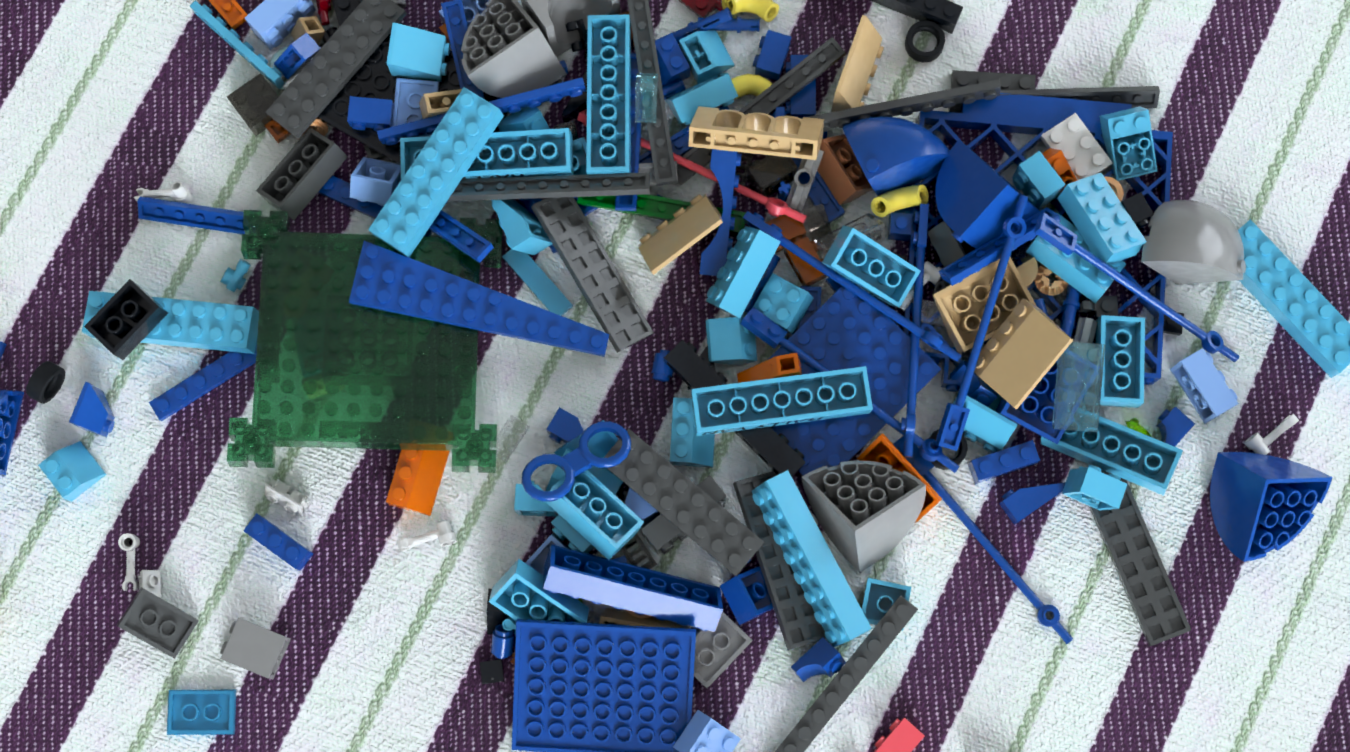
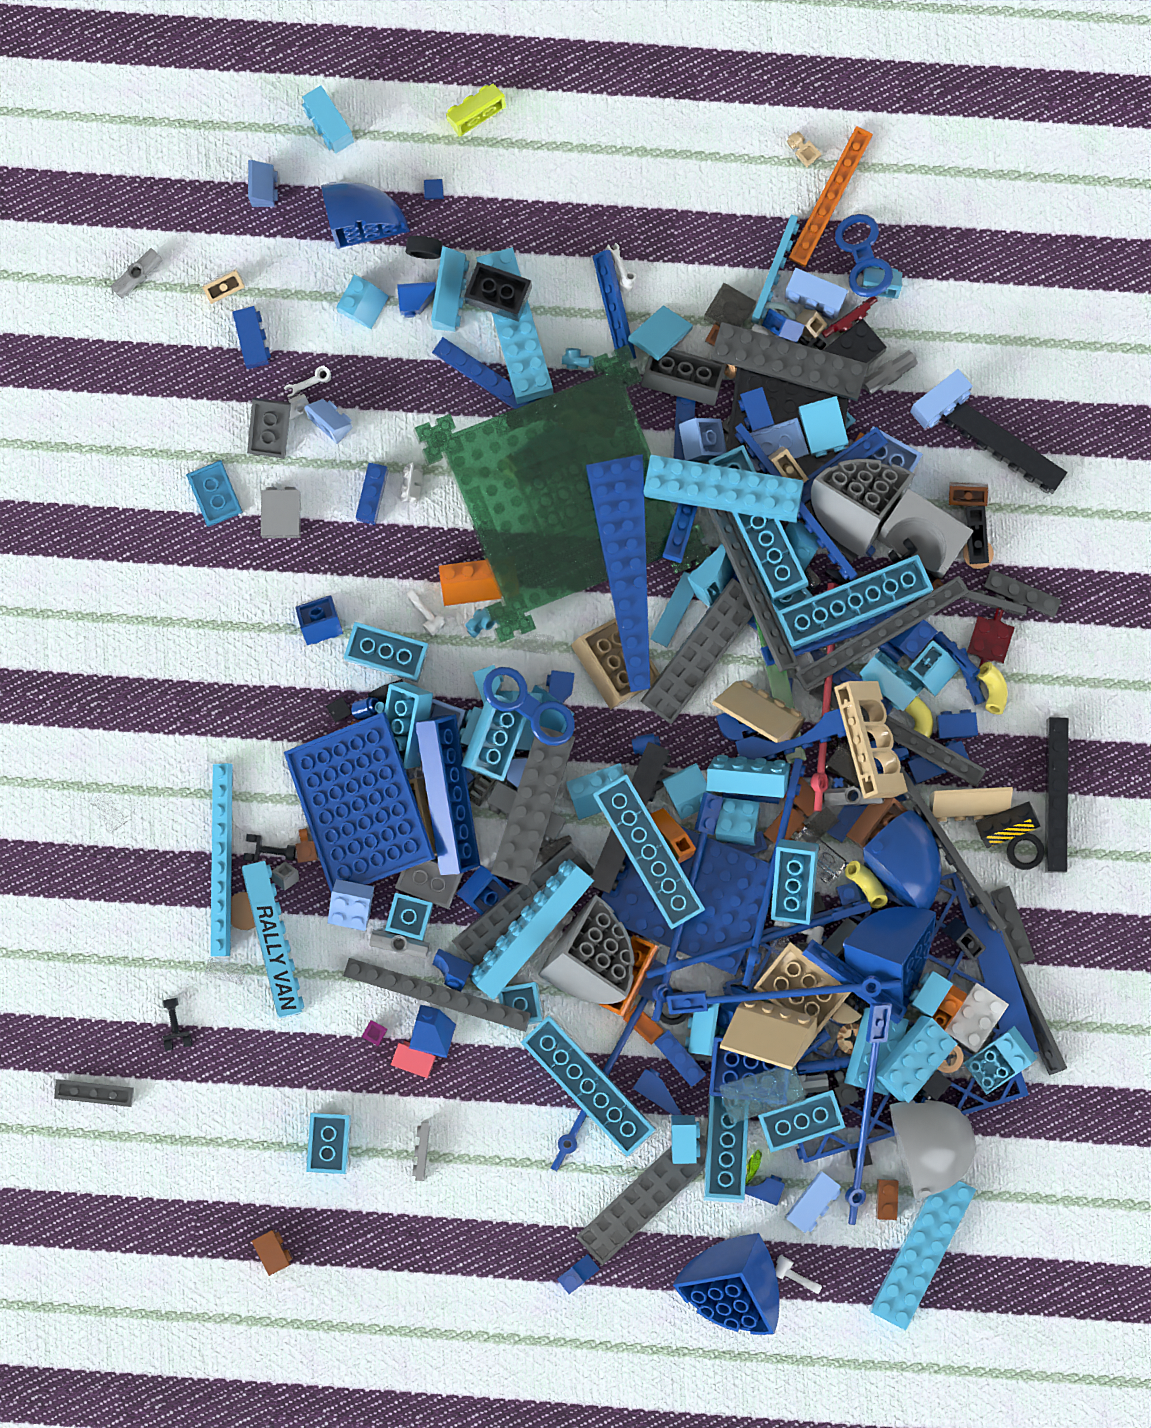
camera: 70 degrees right, 5 degrees up
(53, 602) = (251, 337): none -> blue brick
(102, 374) = (449, 290): none -> medium azure slope
(179, 556) = (326, 418): none -> light blue slope
(248, 179) = (660, 332): none -> medium azure tile
(387, 653) = (319, 620): none -> blue slope
(452, 595) = (386, 652): none -> medium azure brick
(462, 484) = (478, 622): none -> medium azure plate
(561, 371) = (604, 662): none -> tan slope
(646, 97) = (865, 634): clear light blue slope -> none
(683, 274) = (731, 728): none -> blue brick
(732, 502) = (550, 849): none -> clear smoke slope
(744, 685) = (409, 916): none -> medium azure brick
(759, 720) = (386, 941): none -> light grey piece
(877, 710) = (432, 1032): none -> blue slope
(893, 43) = (1008, 824): none -> black brick
(958, 484) = (645, 1026): none -> orange tile
(992, 128) = (964, 939): none -> black slope
(999, 566) = (588, 1086): none -> medium azure brick
(1191, 660) = (578, 1274): none -> blue arch
(1226, 312) = (887, 1199): none -> dark orange brick

